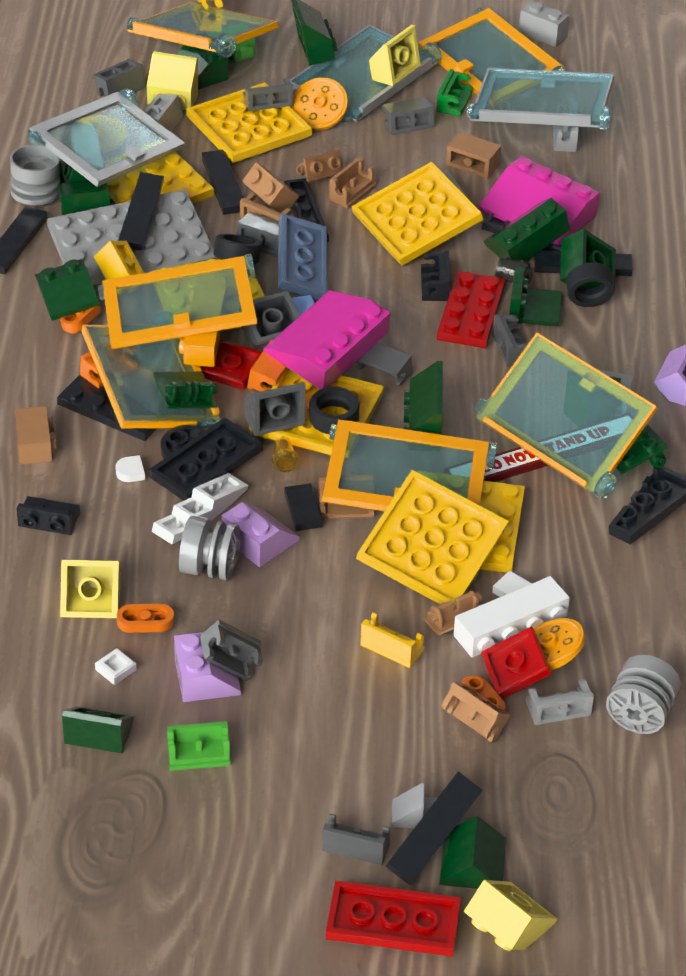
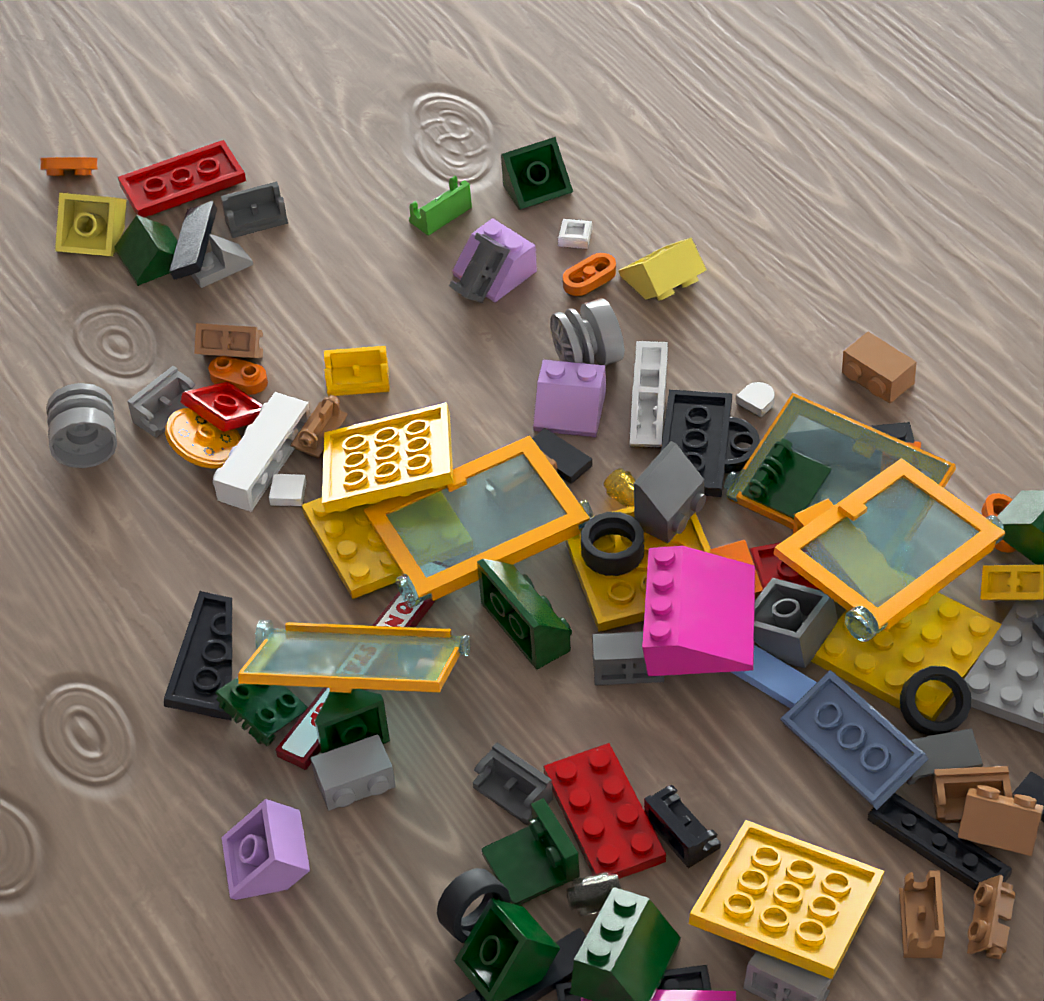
camera: 150 degrees right, 5 degrees up
(48, 515) = (776, 310): black bracket -> none

